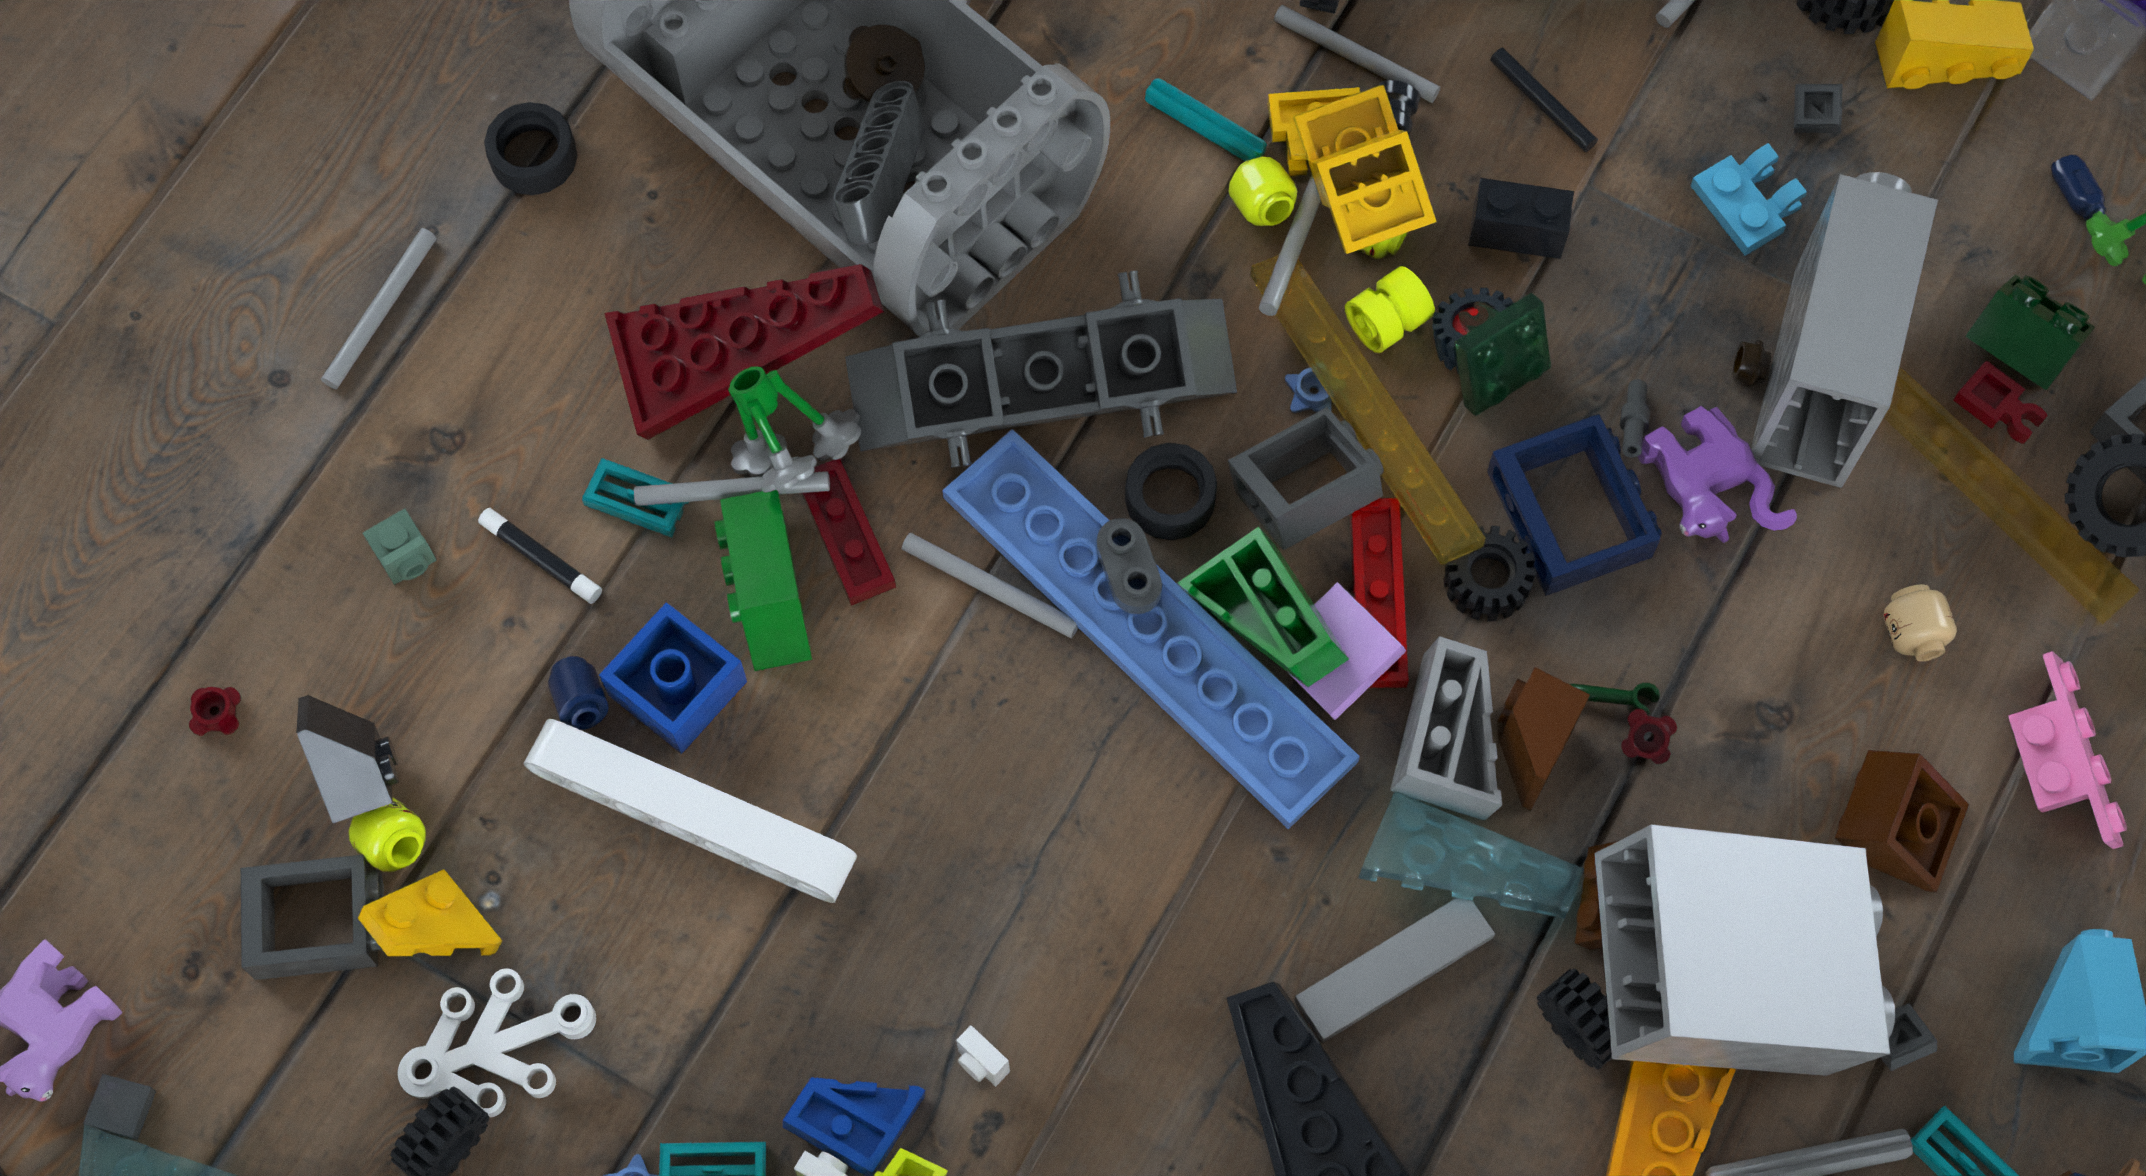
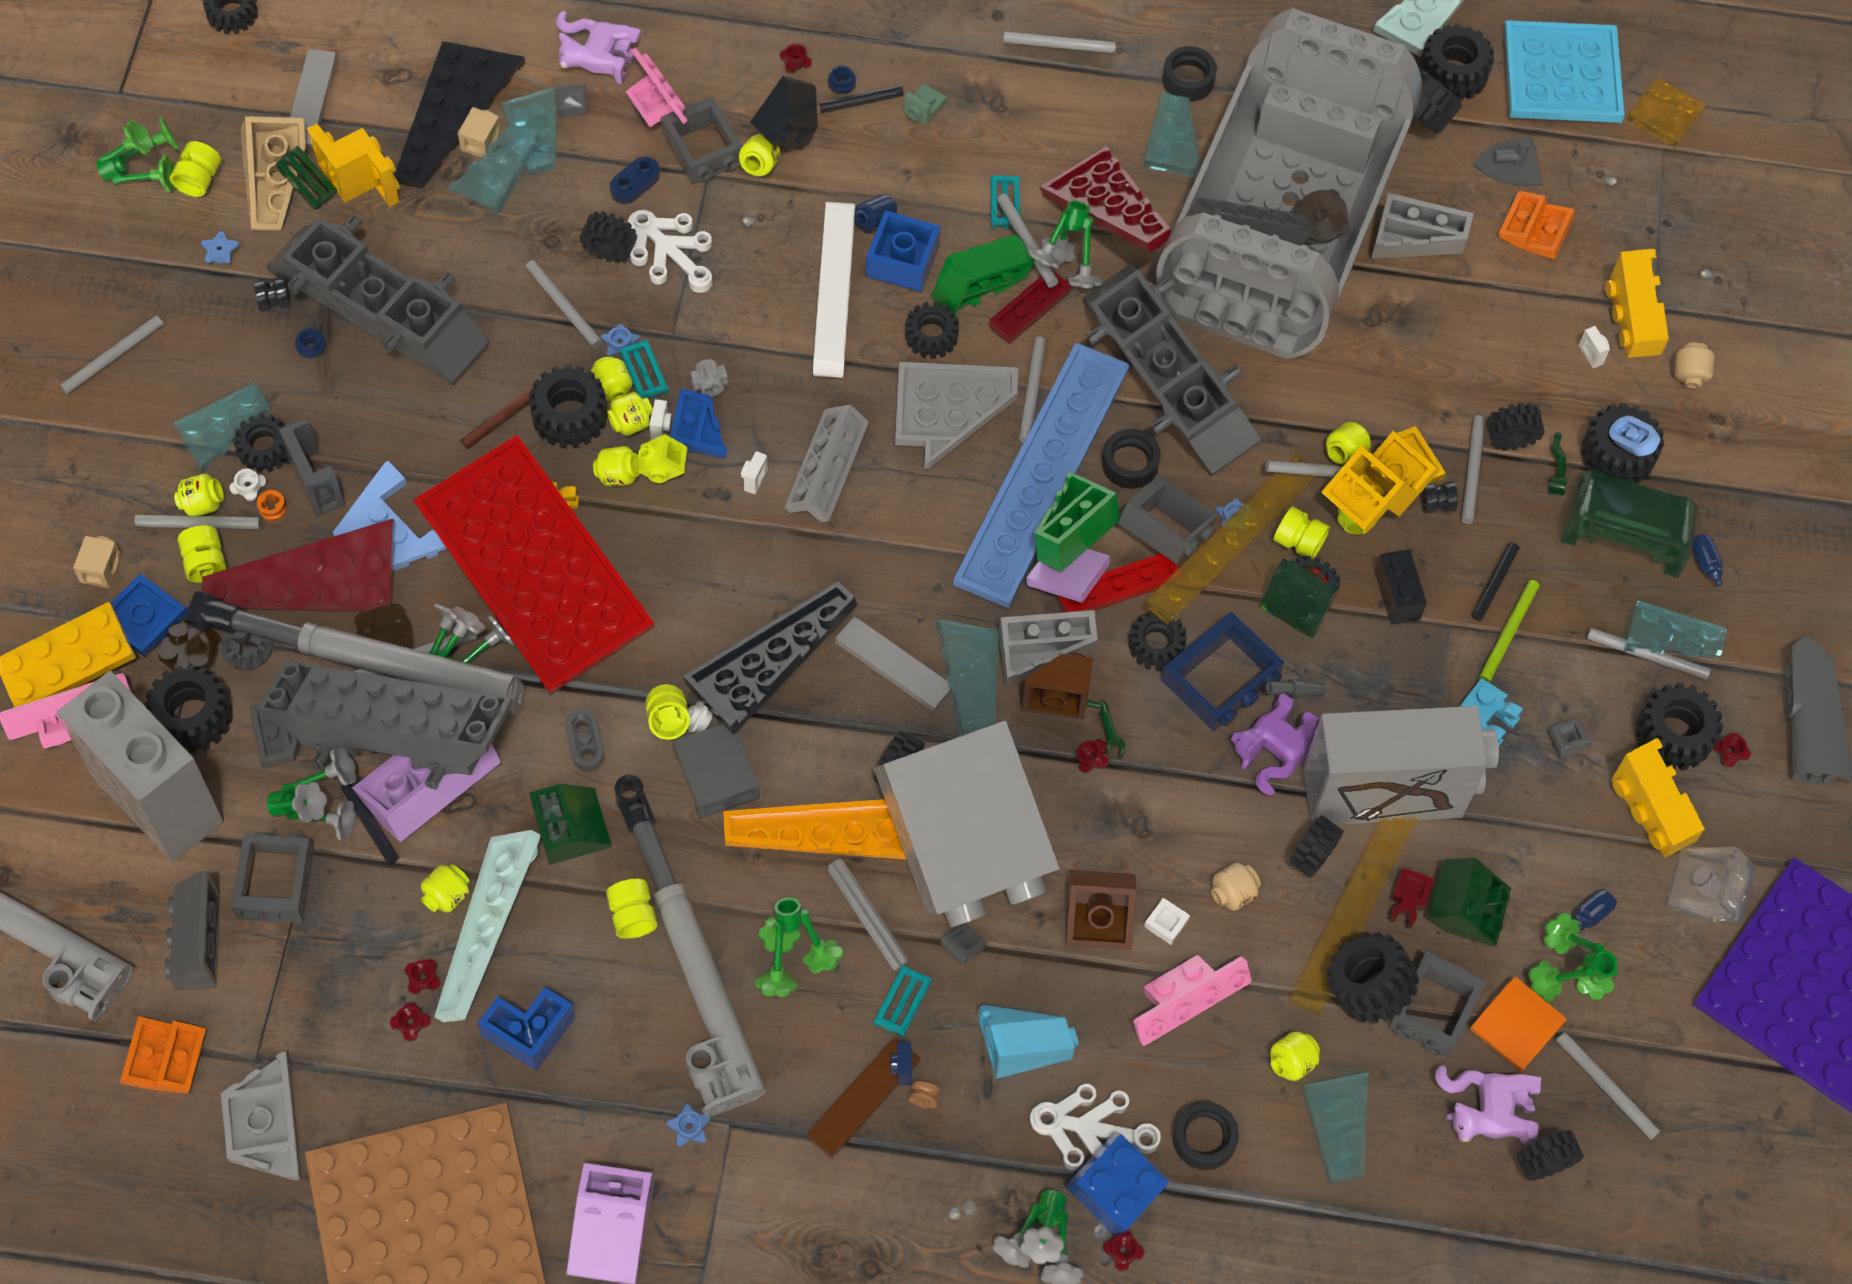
camera: 65 degrees right, 5 degrees down
(187, 970) = (653, 93): none -> bright pink bracket
(286, 644) = (839, 74): none -> dark blue plate
(328, 1053) = (636, 178): none -> dark blue plate
(342, 636) = (861, 98): none -> black bar
(428, 919) = (721, 190): yellow wing -> none
(540, 555) = (949, 170): black bar -> none
(630, 217) = (1172, 138): none -> clear light blue wing
(778, 1067) = (709, 378): none -> light grey gear
(821, 663) = (931, 344): none -> black tyre
(970, 717) = (949, 403): none -> light grey wing
(1017, 930) = (831, 462): none -> light grey fence
(1128, 563) = (1073, 447): dark grey plate -> none
(1204, 120) = (1383, 402): teal axle -> none
(1627, 115) = (1509, 630): none -> lime bar
(1902, 488) = (1316, 846): none -> black tyre
(1946, 736) = (1167, 921): none -> white plate

